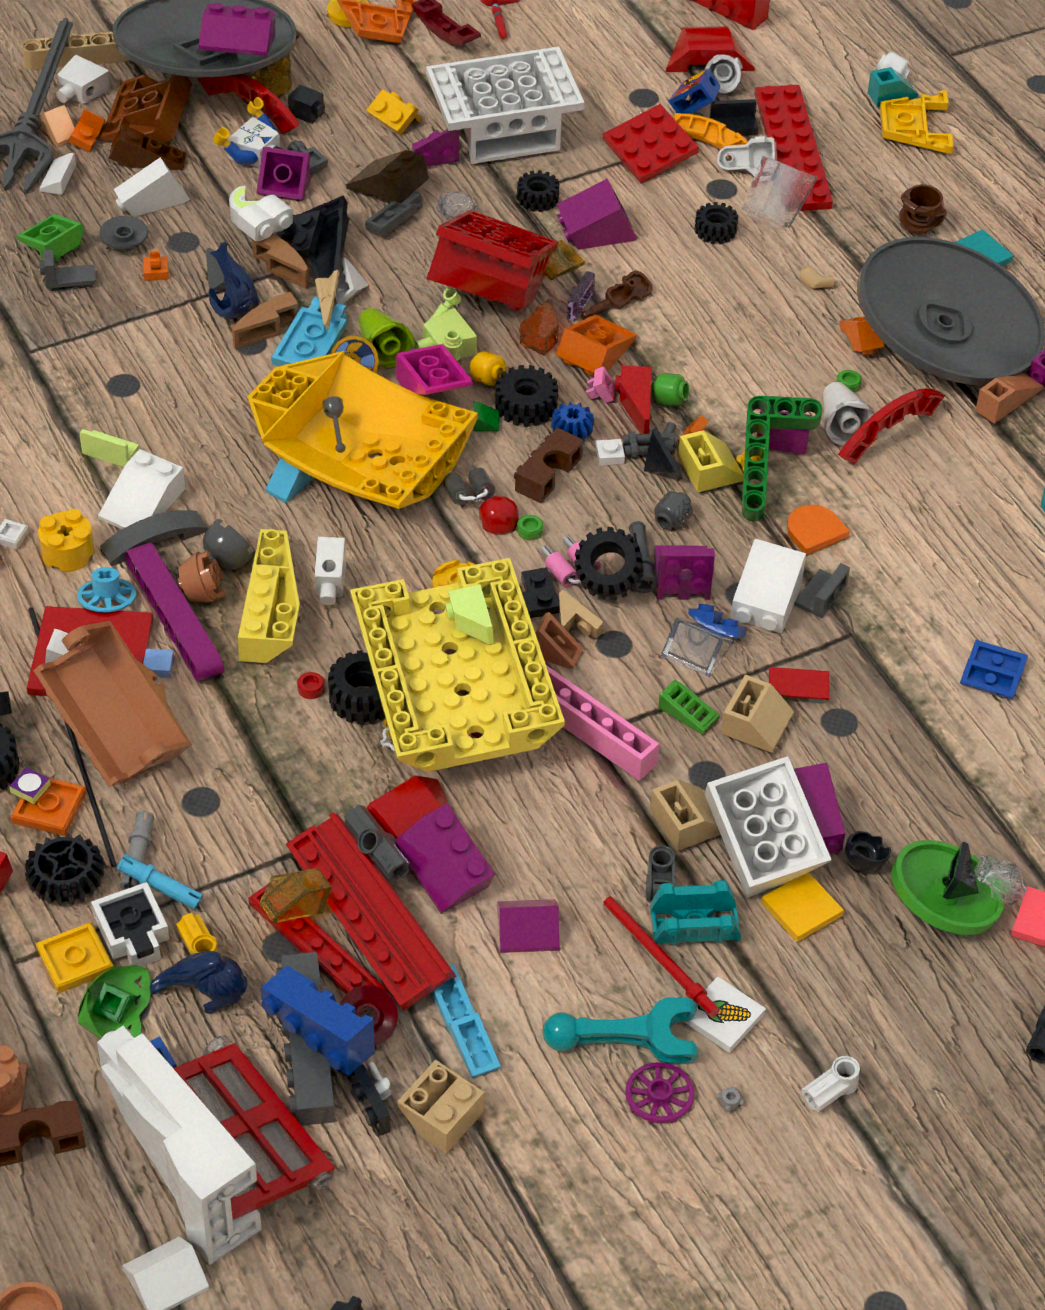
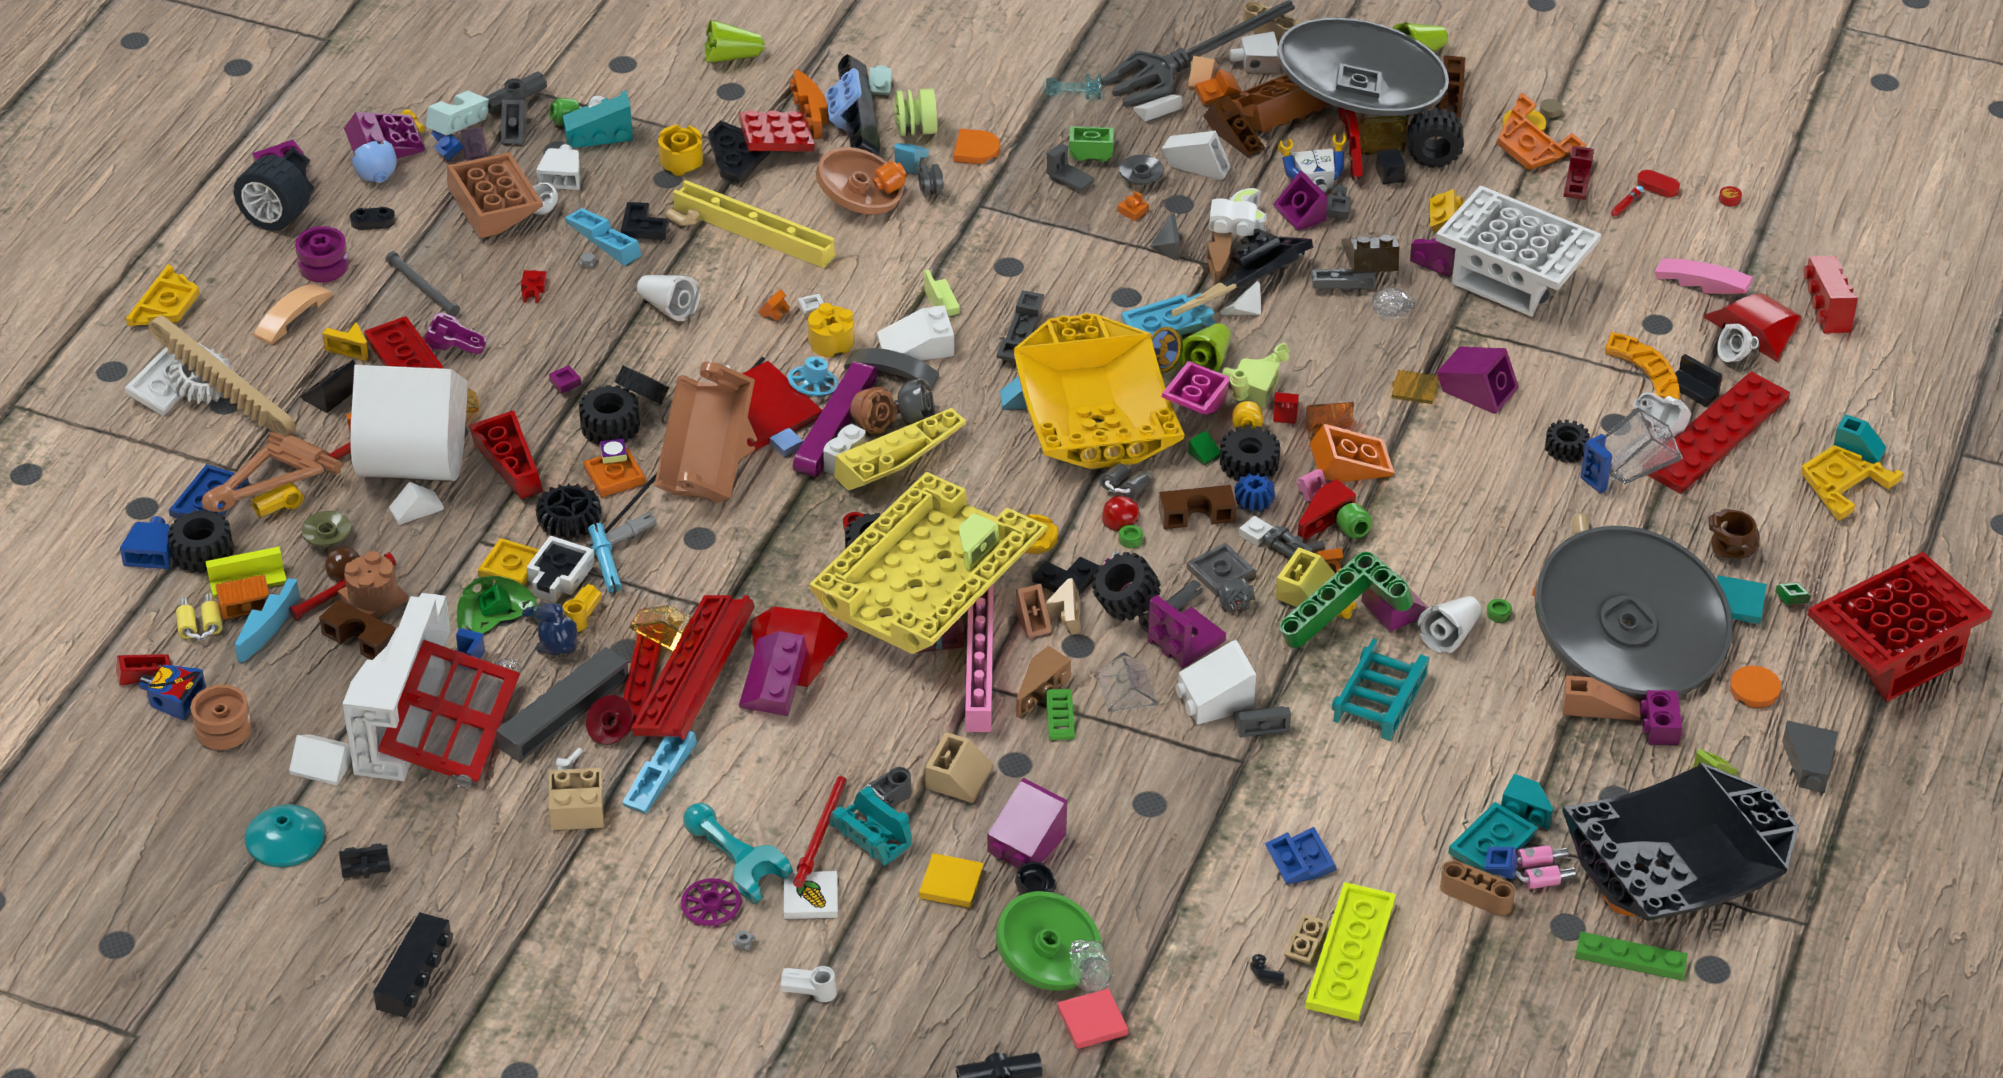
camera: 50 degrees right, 5 degrees down
(212, 426) = (1023, 324): none -> dark grey slope
(223, 629) = (848, 438): none -> white brick
(237, 29) = (1374, 75): magenta slope -> none
(240, 291) = (1156, 260): dark blue hair -> none
(265, 320) = (1148, 286): medium nougat slope -> none
(319, 57) = (1435, 124): none -> black tyre
(319, 1019) = (565, 691): blue wedge -> none
(330, 576) = (958, 460): white torso -> none
(333, 409) = (1098, 367): dark grey hinge -> none
(366, 1092) = (560, 745): black plate -> none
(376, 843) = (744, 630): dark grey piece -> none
(491, 259) = (1342, 343): red wedge -> none
(497, 338) = (1285, 407): none -> red slope
(528, 925) = (774, 751): magenta slope -> none
(538, 191) = (1470, 323): black tyre -> none
(580, 296) = (1388, 419): clear purple plate -> none
(628, 500) = (1220, 565): none -> flat silver tile
(634, 286) = (1440, 440): reddish brown piece -> none
(634, 689) = (1045, 672): none -> medium nougat slope
(636, 37) = (1710, 277): none -> bright pink slope
(650, 143) = (1601, 354): red plate -> none
(659, 459) = (1280, 553): black slope -> none
(702, 91) = (1688, 341): blue torso -> none
(712, 620) = (1155, 680): blue slope -> none
(756, 714) = (1090, 750): tan slope -> none
(766, 826) = (977, 806): white slope -> none
(770, 223) = (1596, 463): none -> blue bracket
(800, 683) = (1152, 758): red piece -> none
(815, 528) = (1319, 679): orange tile -> none
(881, 484) = (1397, 705): none -> teal fence
(895, 61) = (1886, 427): white head -> none
(915, 403) = (1478, 644): red tile -> none
(961, 875) = (1057, 935): black slope -> none
(1002, 224) = (1792, 593): none -> green tile

